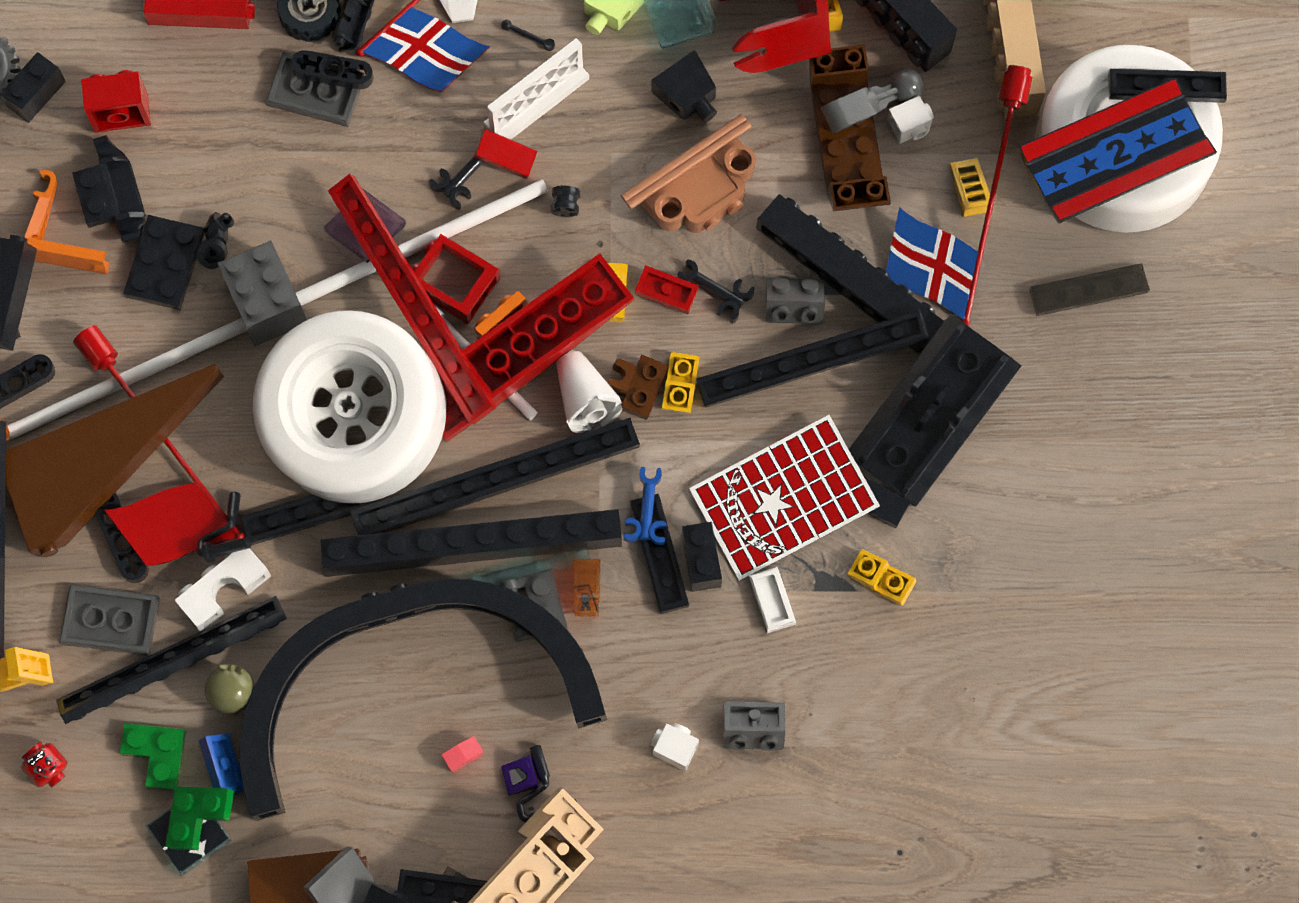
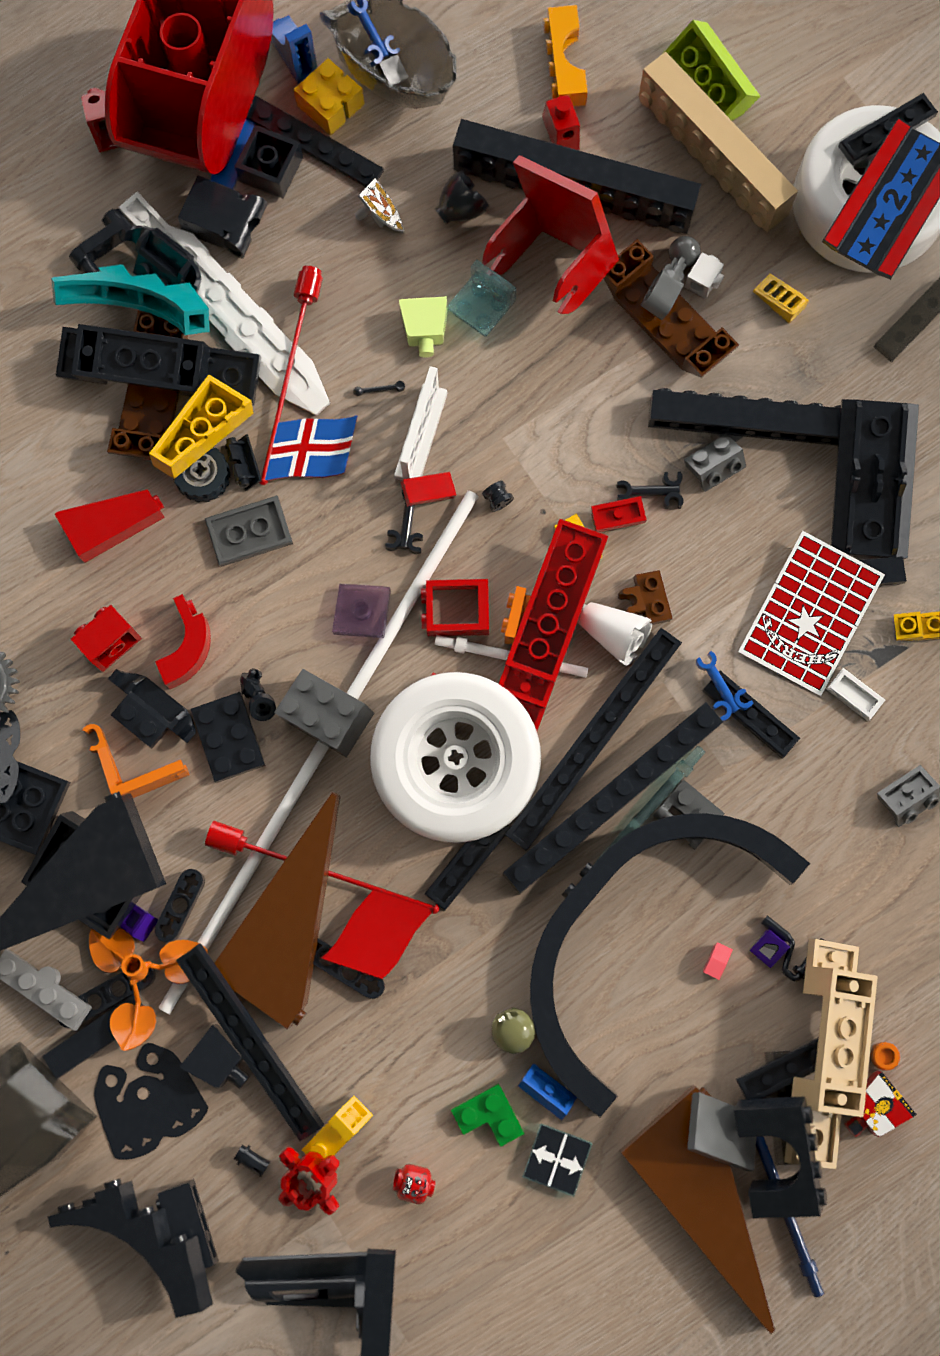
camera: 30 degrees left, 5 degrees up
(33, 87) = (31, 668): black brick -> none
(109, 620) = (381, 1038): dark grey tile -> none
(170, 660) = (451, 1038): black plate -> none
(187, 164) = (193, 651): none -> red arch
(189, 810) = (550, 1144): green plate -> none
(199, 600) = (454, 932): white arch -> none
(207, 550) = (424, 936): black piece -> none
(325, 59) = (244, 502): black beam -> none
(412, 299) = (442, 644): red plate -> none
(586, 587) = (719, 775): clear orange leg -> none
(675, 745) = (866, 849): white brick -> none
(680, 382) = (676, 577): yellow slope -> none
(686, 88) = (527, 354): black torso -> none
(699, 183) = (587, 418): nougat brick -> none
(701, 556) = (786, 696): black brick -> none
(812, 358) = (762, 497): black tile -> none
(937, 261) = (798, 367): flag -> none

